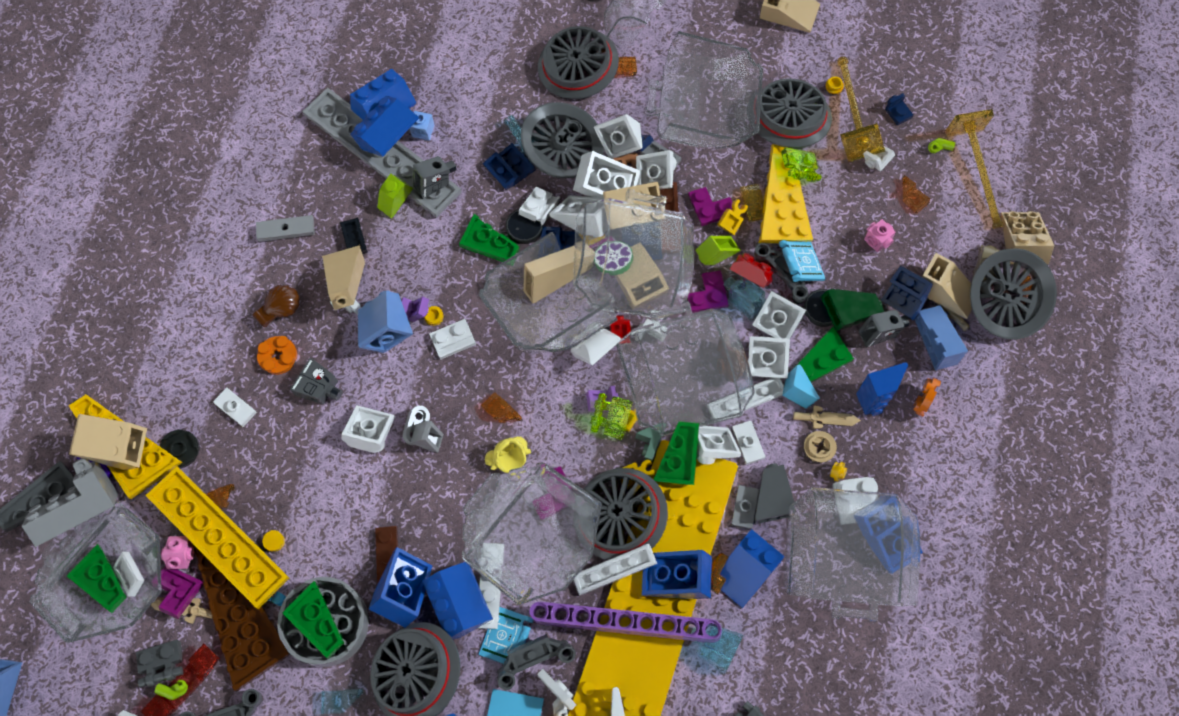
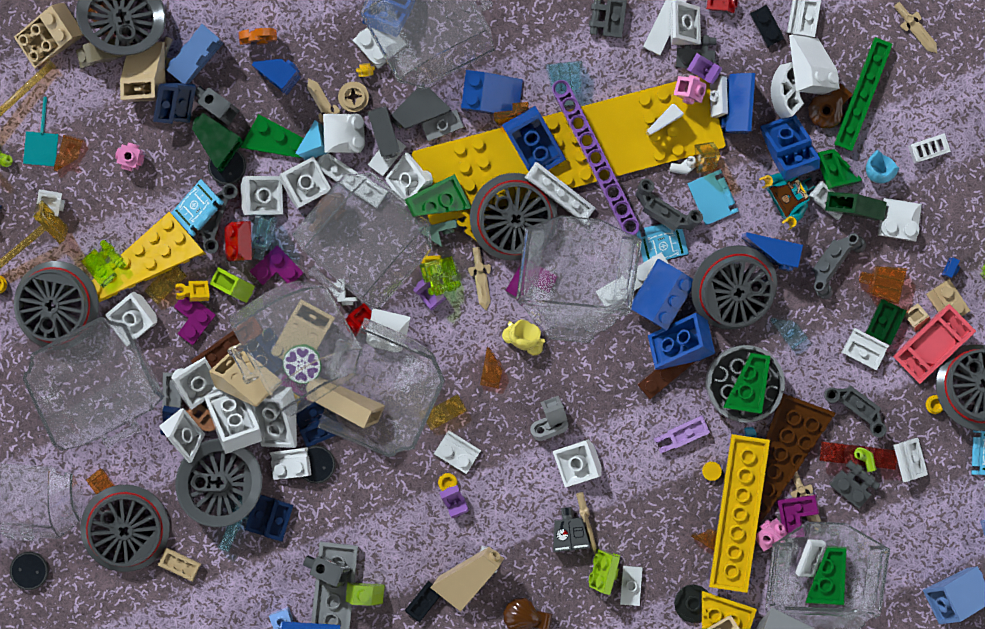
camera: 125 degrees left, 20 degrees up
(261, 389) = (604, 571): none -> lime plate
(269, 347) = (556, 588): orange plate -> none
(322, 406) = (584, 513): none -> tan sword
(323, 537) = (684, 433): none -> lavender hinge
(383, 323) = (485, 515): medium blue slope -> none
(486, 241) = (352, 484): green wing -> none
(493, 349) = (445, 411): none -> clear yellow slope
(521, 83) = (179, 564): none -> tan plate
(557, 688) = (675, 176): white plate -> none
(585, 453) = (481, 279): none -> tan sword
(742, 162) = (135, 313): none -> white slope
(772, 448) = (383, 132): none -> dark grey slope
(792, 414) = (343, 133): none -> white slope
(931, 179) = (40, 147): none -> teal piece

